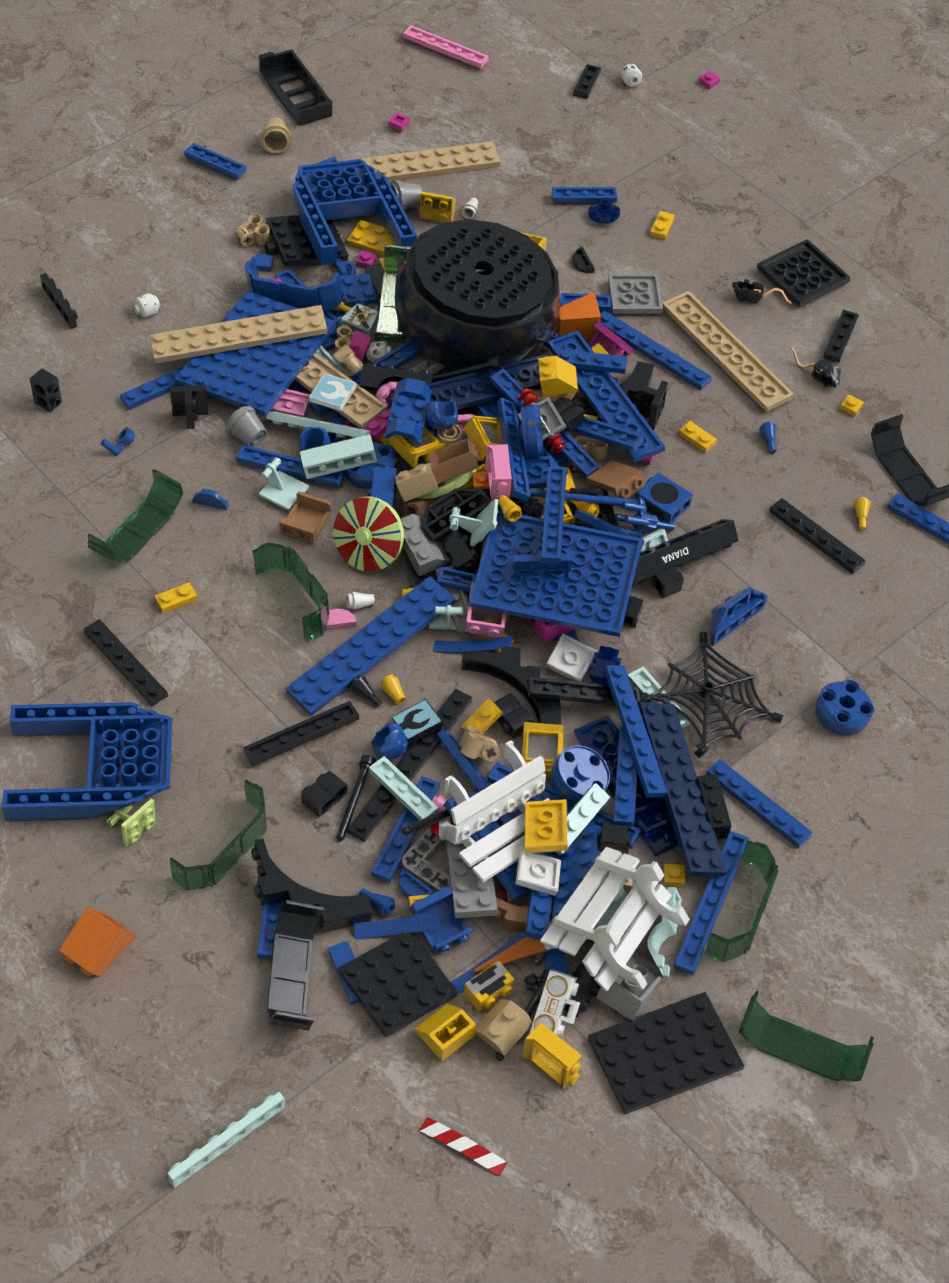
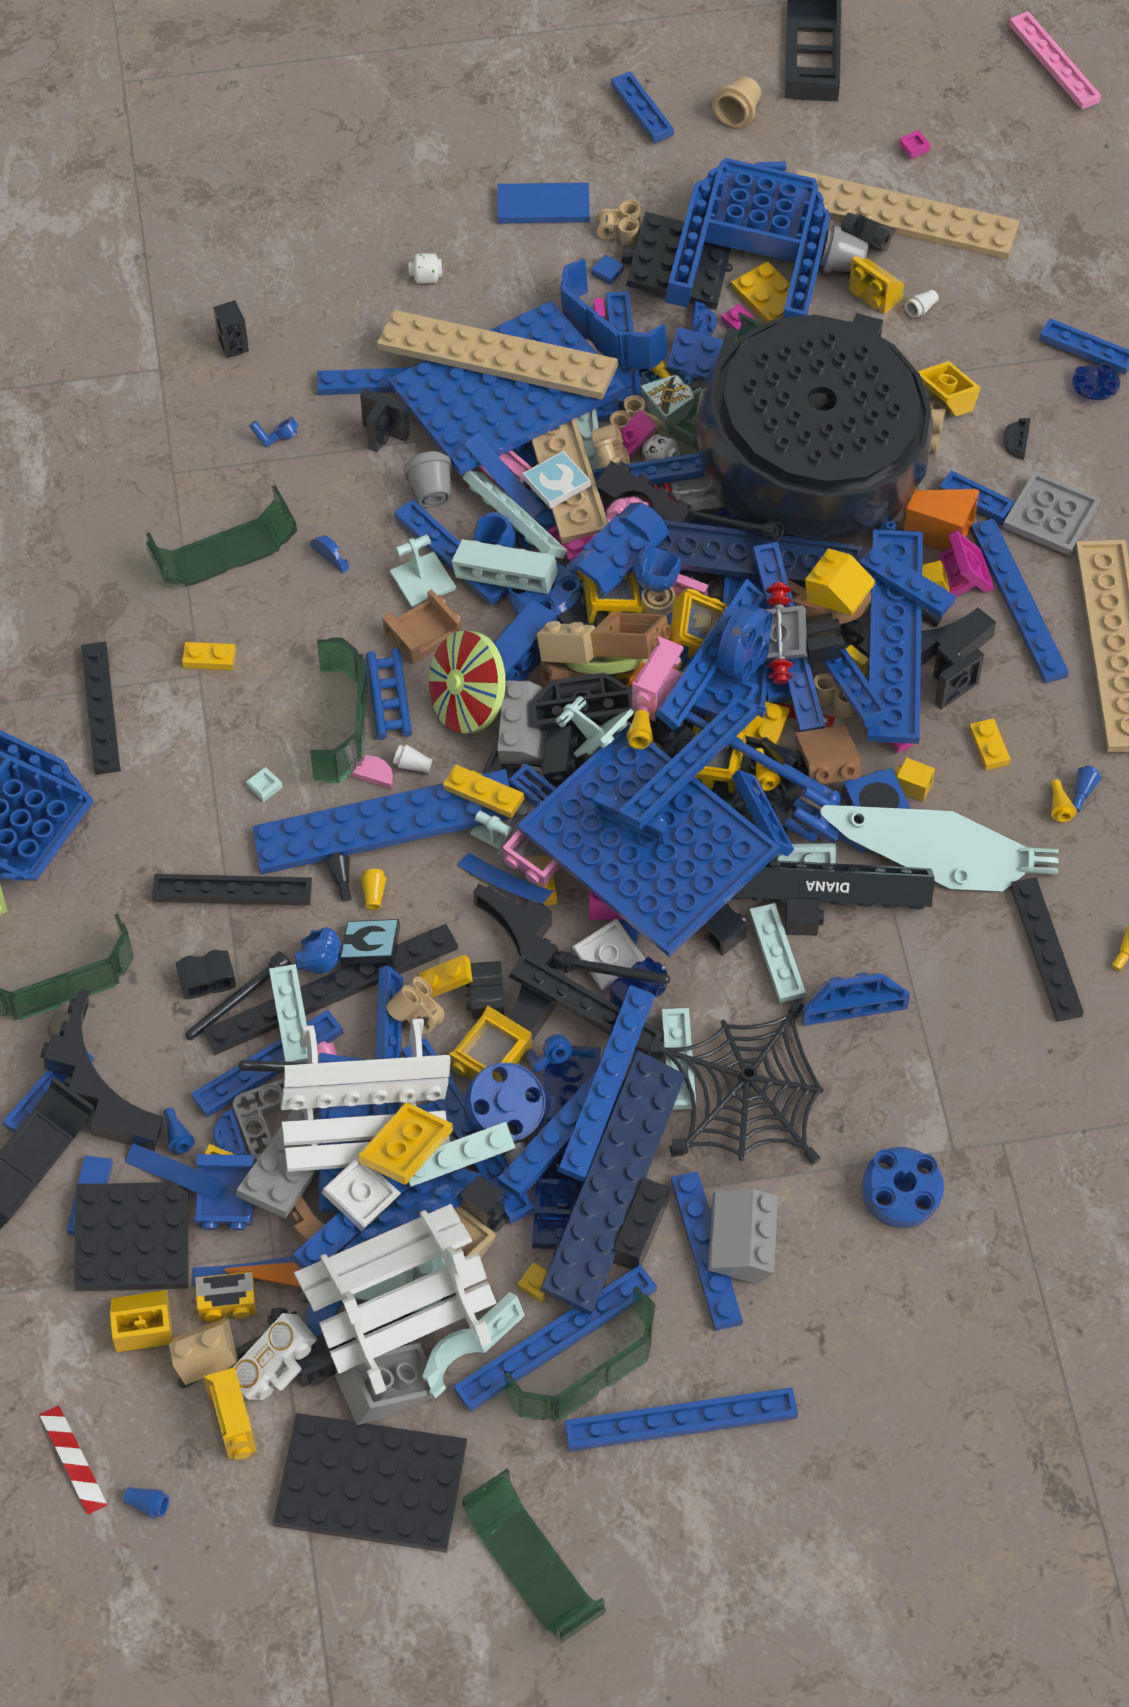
camera: 35 degrees right, 5 degrees up
(59, 302) = (328, 225): black plate -> none
(192, 239) = (543, 202): none -> blue tile
(272, 659) = (264, 784): none -> light aqua tile
(293, 404) = (503, 475): none -> blue sticker
(324, 569) = (400, 702): none -> blue bar
(414, 176) = (868, 230): none -> black piece
(428, 594) = (483, 791): none -> yellow plate
(535, 1143) = (149, 1501): none -> blue cone
(550, 673) = (566, 962): none -> black piece
(586, 728) = (550, 1046): none -> blue plate
(669, 610) = (777, 953): none -> light aqua plate
(674, 471) = (915, 778): none -> yellow brick
(716, 501) = (954, 847): none -> light aqua wing
(766, 452) = (1062, 807): none -> yellow cone
(779, 780) = (743, 1234): none -> light grey slope
(821, 910) = (681, 1419): none -> blue plate

